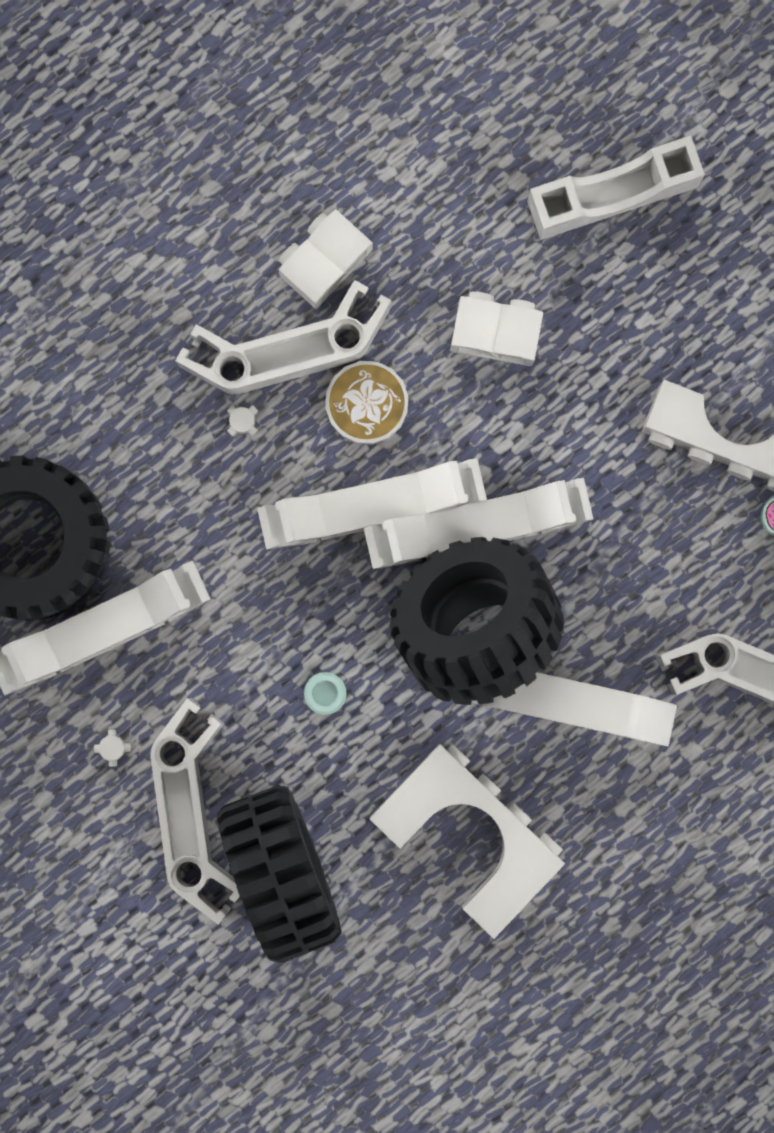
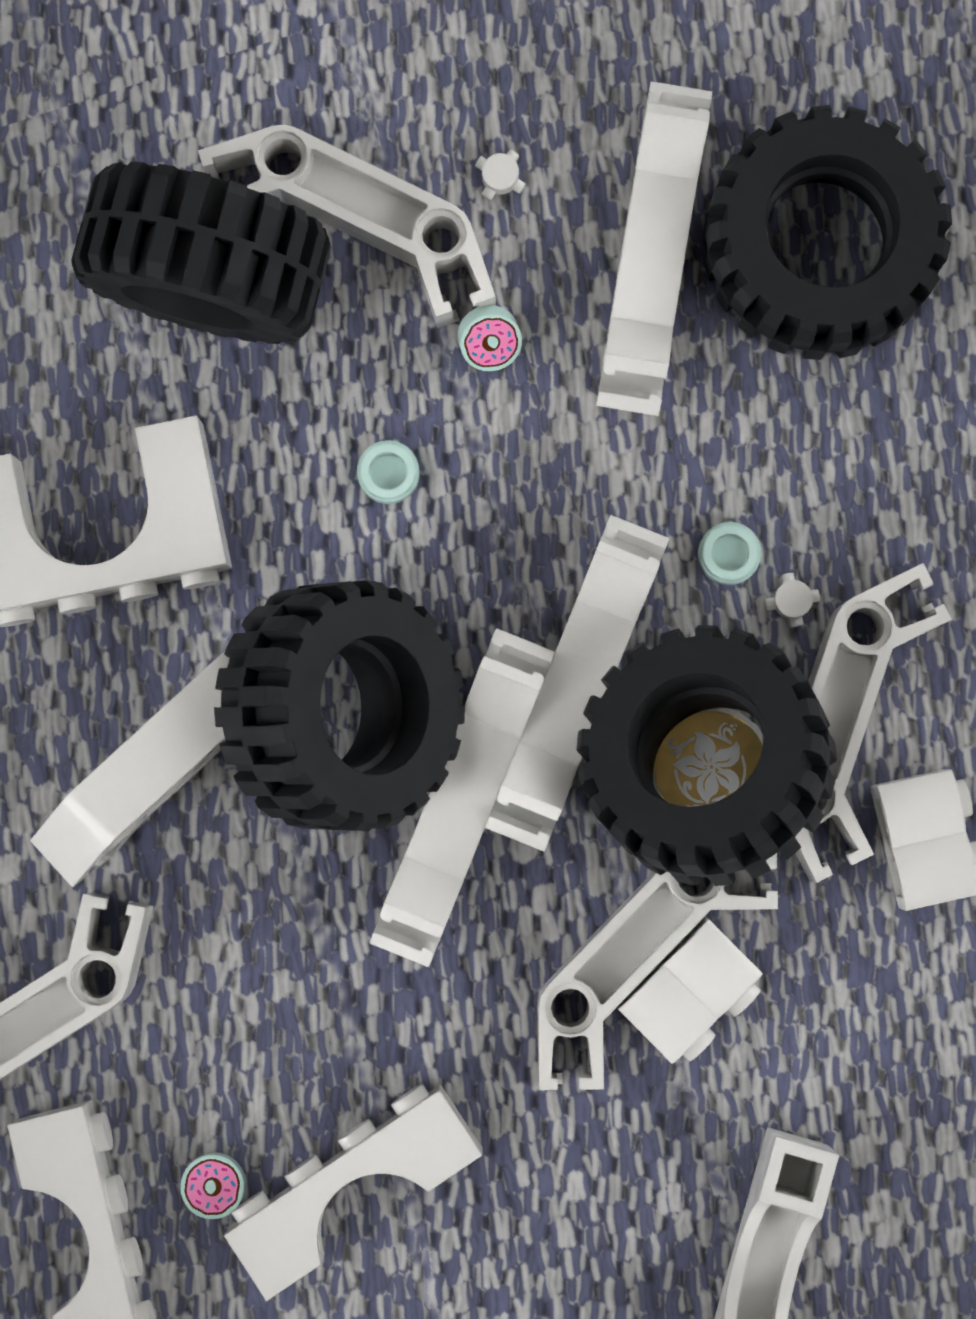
camera: 120 degrees right, 0 degrees up
(211, 688) = (489, 338): none -> tile
(240, 472) = (729, 553): none -> light aqua tile
(352, 456) = (659, 693): none -> black tyre
(491, 376) = (622, 956): none -> white piece

